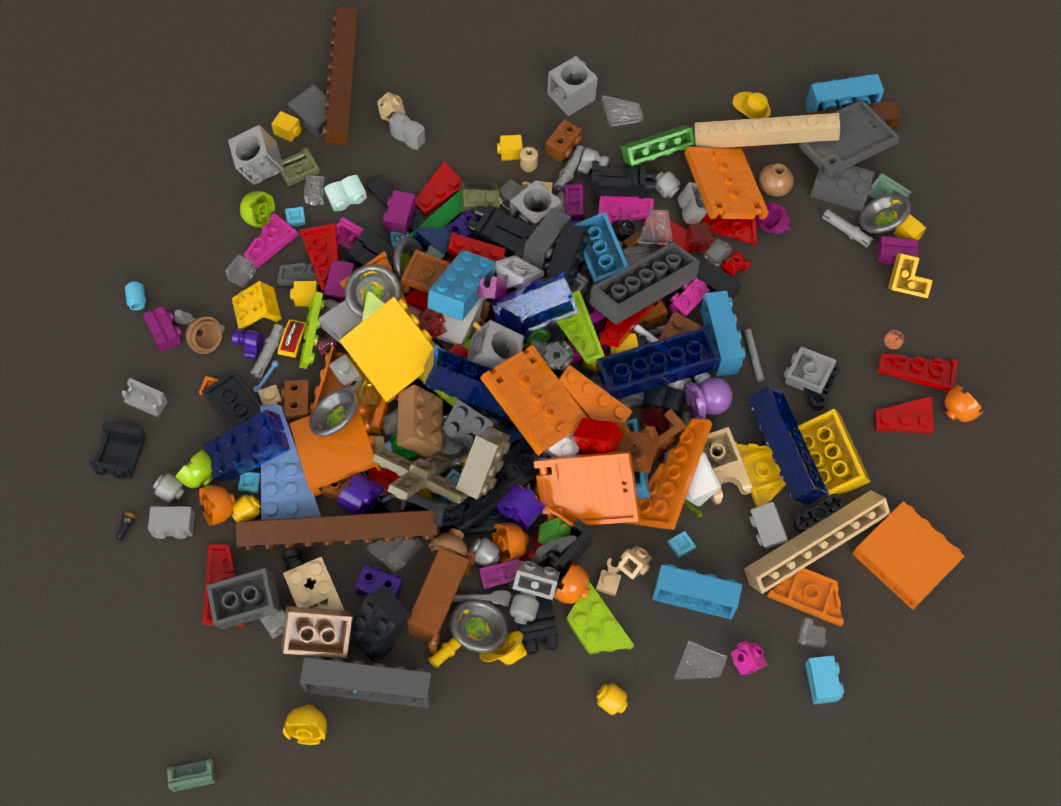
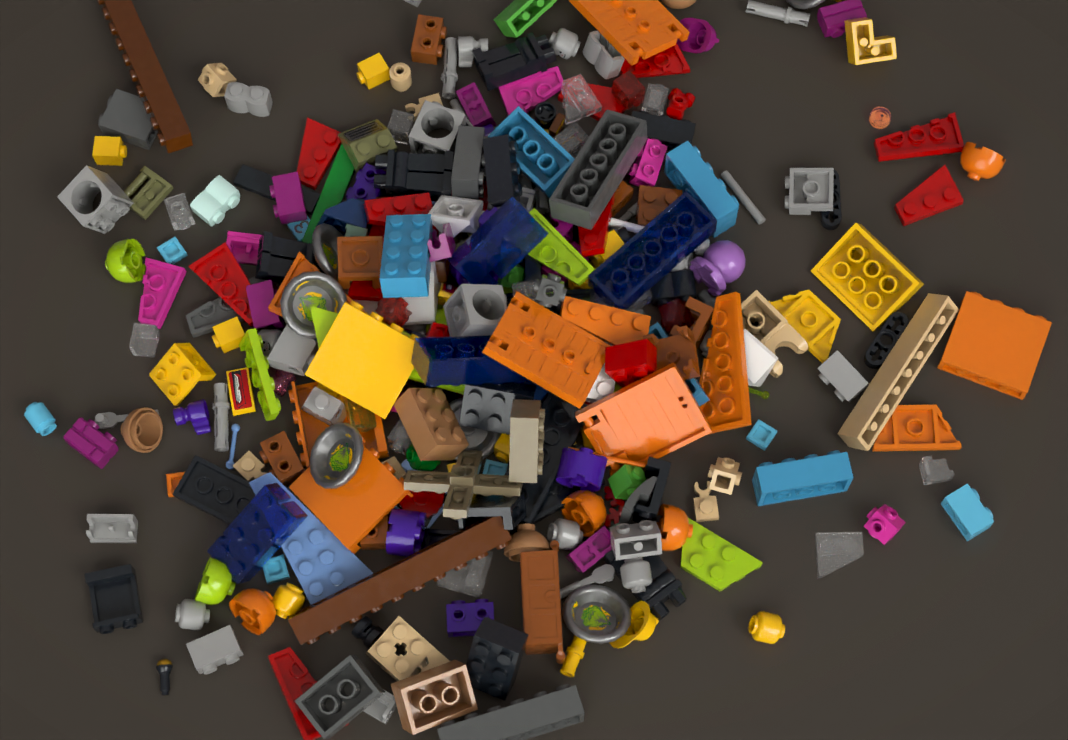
camera: 20 degrees left, 5 degrees up
(788, 446) = (824, 282): clear blue brick -> none

